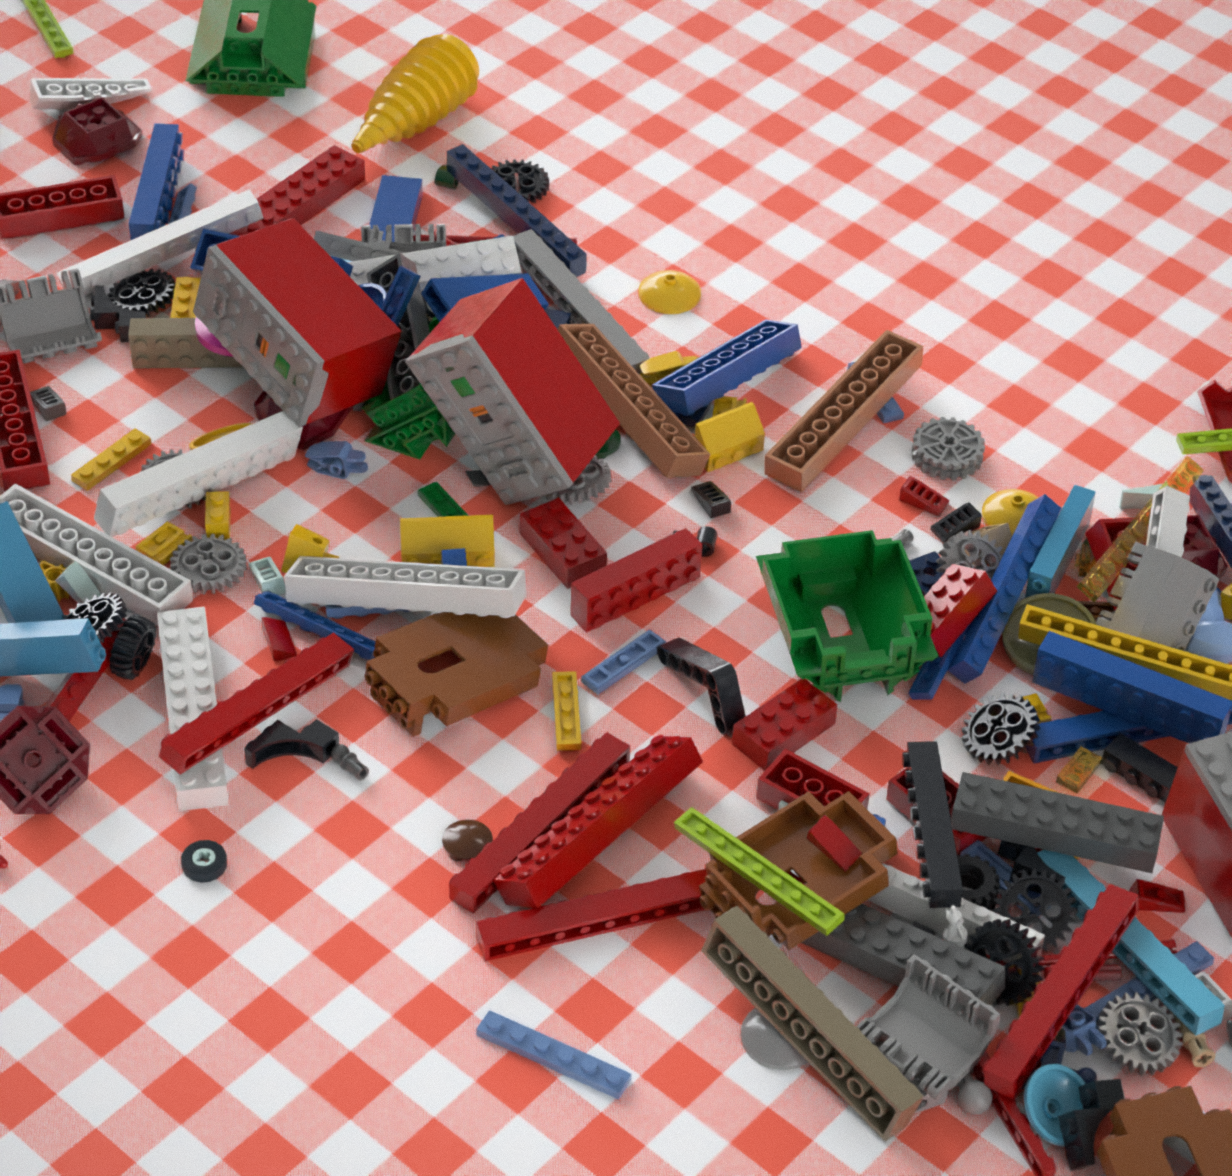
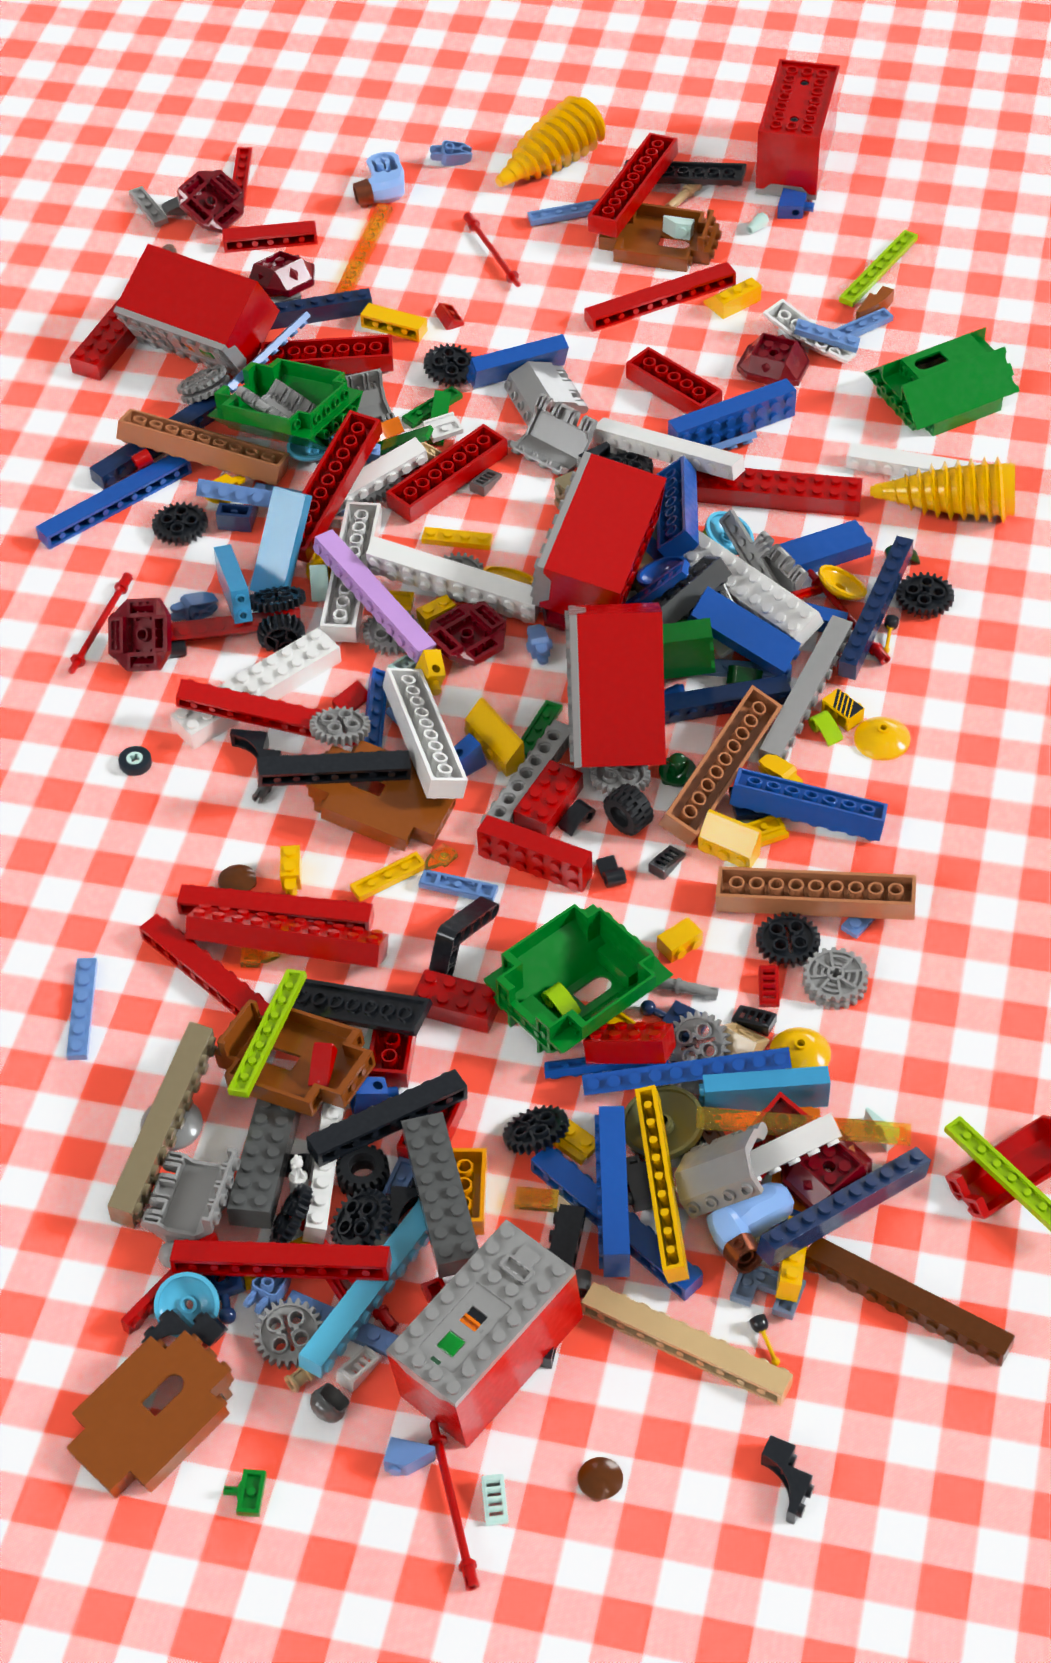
camera: 65 degrees right, 5 degrees up
(90, 36) = (874, 302): none -> dark orange slope
(109, 79) = (827, 335): none -> medium blue plate
(110, 55) = (867, 323): none -> medium blue plate
(161, 542) = (373, 595): none -> lavender brick
(278, 497) = (469, 633): none -> dark red piece
(326, 119) = (893, 461): none -> white brick
(342, 645) = (340, 726): none -> light grey gear
(408, 672) = (333, 768): none -> black brick
(458, 223) = (841, 583): none -> yellow dish
(496, 784) = (291, 869): none -> yellow brick
(521, 547) = (548, 747): none -> light grey brick
(574, 656) = (440, 856): none -> clear yellow plate
(600, 866) = (254, 958): none -> plate
(603, 532) = (575, 815): none -> black panel
(619, 295) = (843, 709): none -> yellow brick
(625, 314) = (827, 726): none -> lime panel
(636, 486) = (628, 809): none -> black tyre
(756, 791) = (364, 1007): none -> black plate
(822, 521) = (680, 940): none -> yellow brick
(839, 638) = (560, 998): none -> lime panel
(878, 458) = (773, 941): none -> black gear

